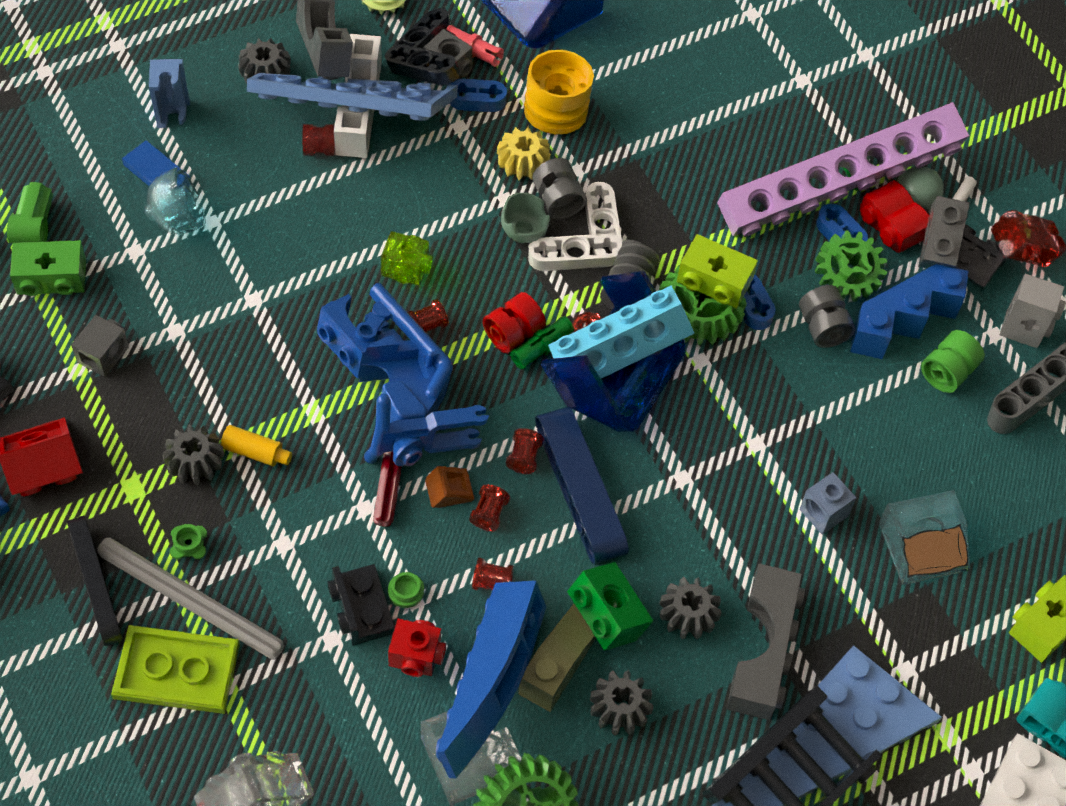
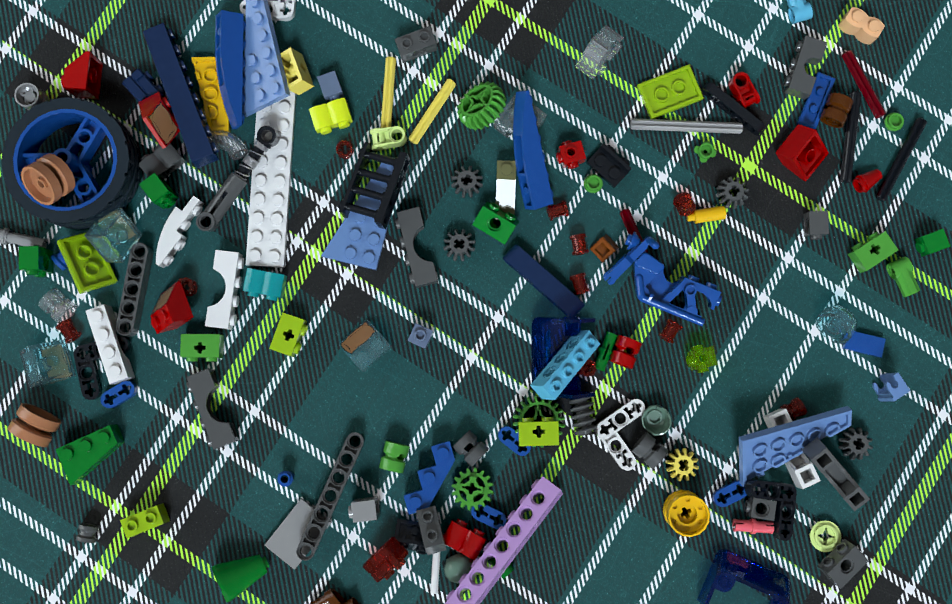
camera: 155 degrees right, 25 degrees up
(57, 593) = (745, 91): none -> red piece
(286, 480) = (680, 204): none -> clear red wheel

